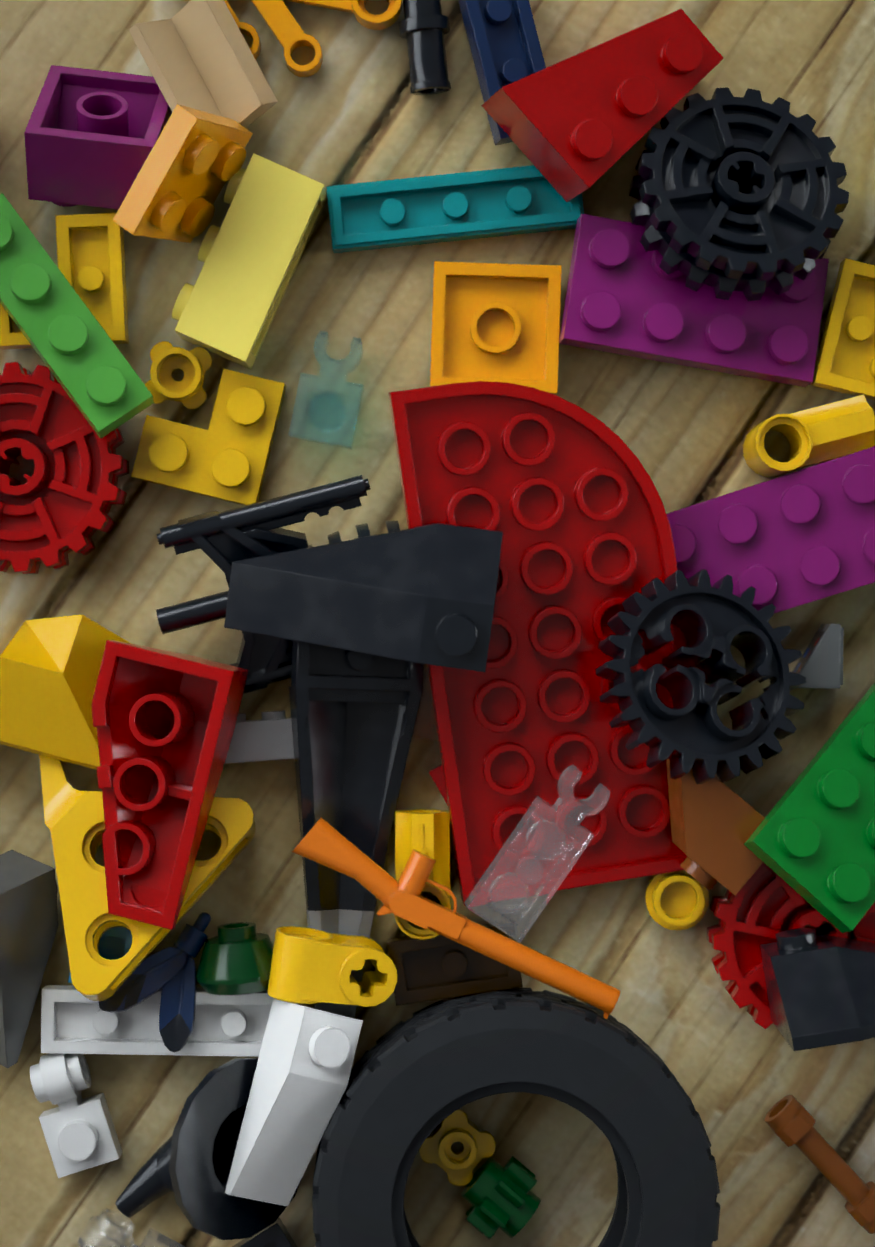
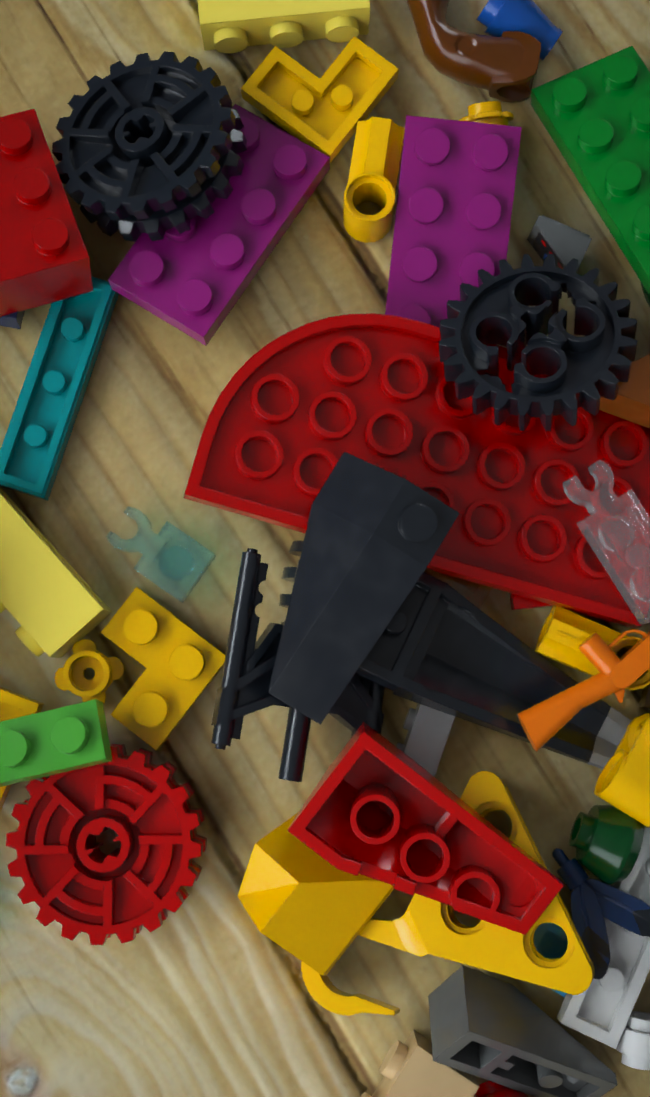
camera: 65 degrees left, 5 degrees down
(496, 324) = (165, 391): light orange plate -> none

